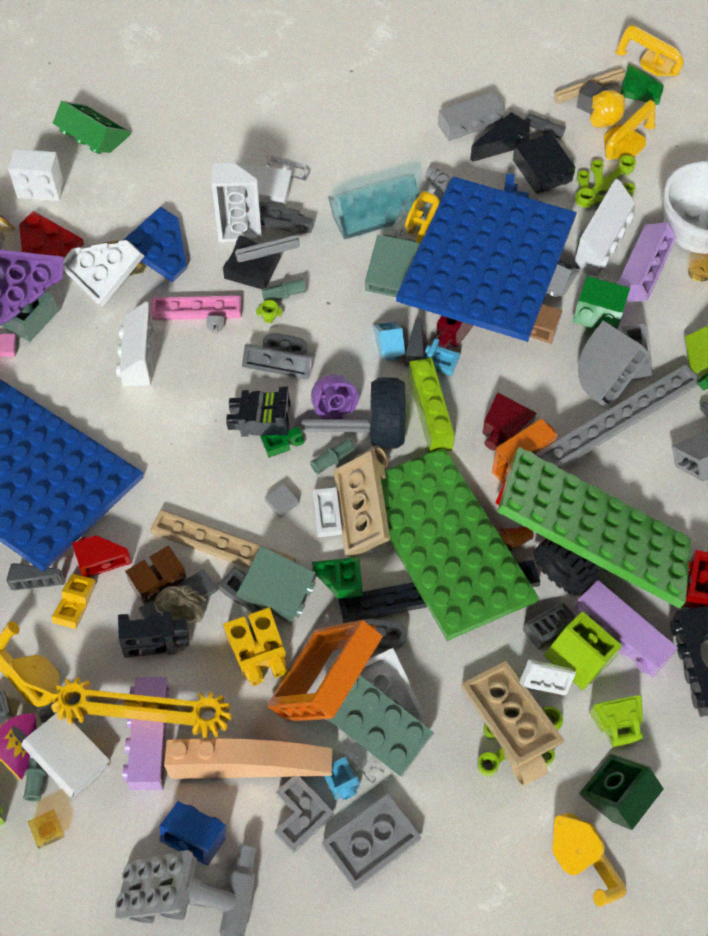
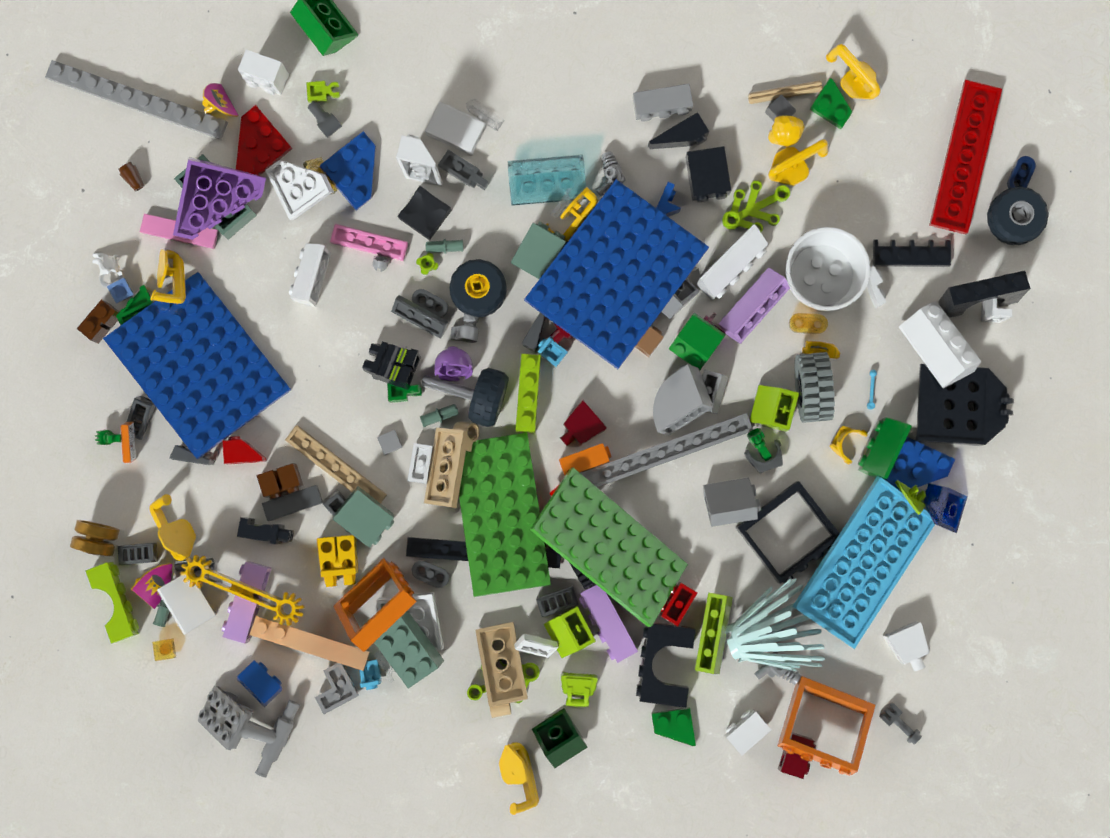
camera: 25 degrees right, 25 degrees up
(74, 601) = (217, 482): yellow slope -> none
(102, 185) = (318, 91): none -> lime plate
(117, 209) = (326, 122): none -> dark grey pin
(181, 602) = (290, 511): dark tan hat -> none
(267, 248) = (438, 209): light grey axle -> none
(336, 316) = (478, 288): none -> black wheel
(338, 362) = (466, 332): none -> light grey piece
(340, 576) = (414, 522): green wing -> none
(371, 841) = (378, 722): light grey plate -> none
(389, 340) = (515, 320): medium azure slope -> none
(545, 126) = (726, 129): dark grey axle -> none

